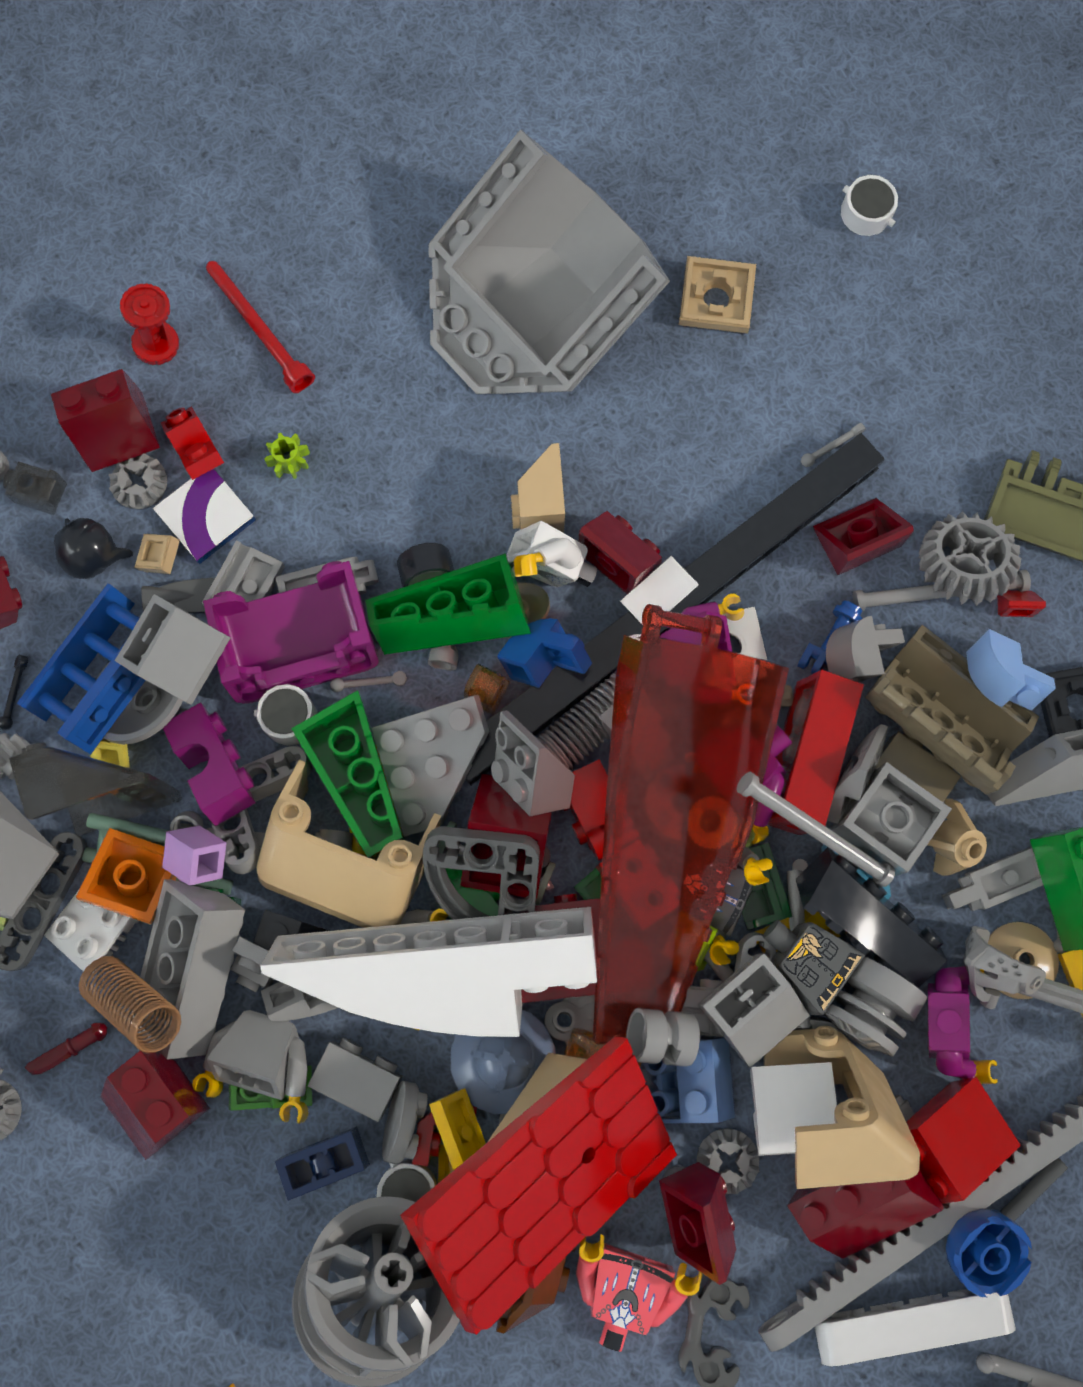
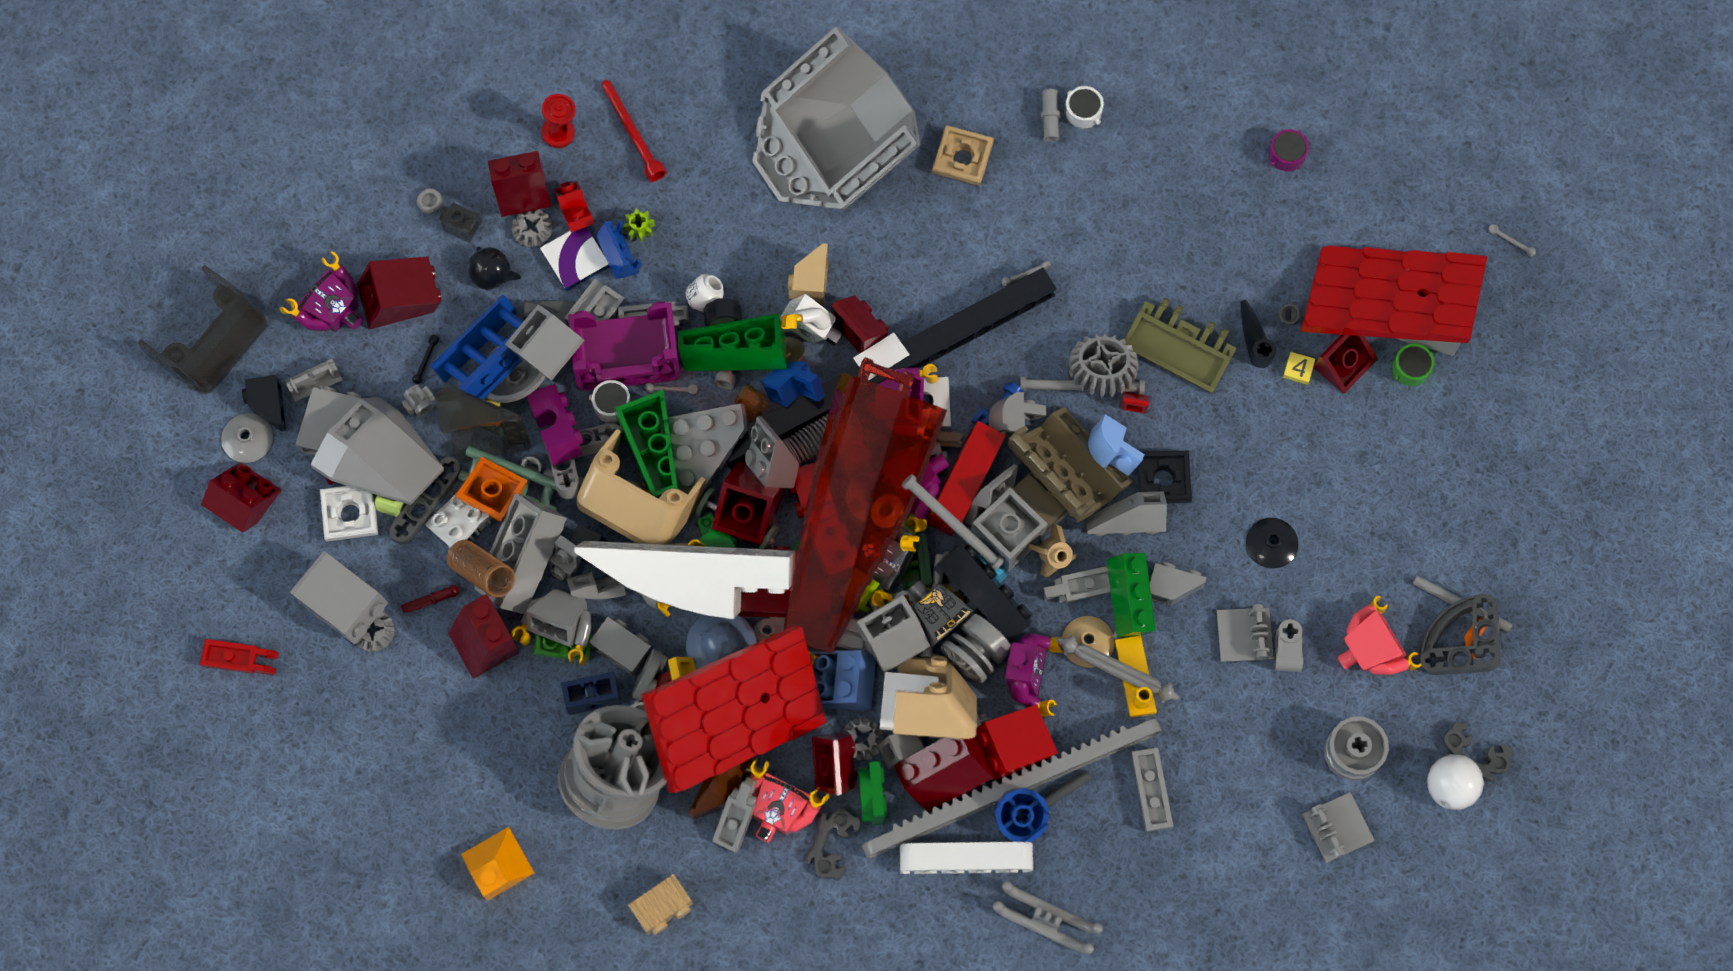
camera: 10 degrees right, 5 degrees down
(157, 553) = (538, 279): tan tile -> none
(194, 855) = (537, 480): lavender brick -> none
(262, 496) = (617, 250): none -> blue hinge
(393, 536) = (704, 290): none -> white head
(501, 862) = (741, 511): dark grey beam -> none
(568, 1323) = (736, 816): none -> light grey hinge
(663, 1037) = (831, 640): light grey wheel -> none
(763, 1256) = (871, 793): none -> green piece
(778, 1179) = (899, 747): none -> light grey brick
(825, 222) = (1050, 115): none -> light grey pin
(862, 534) = (1033, 339): dark red slope -> none
(1012, 974) = (1069, 640): light grey helmet -> none

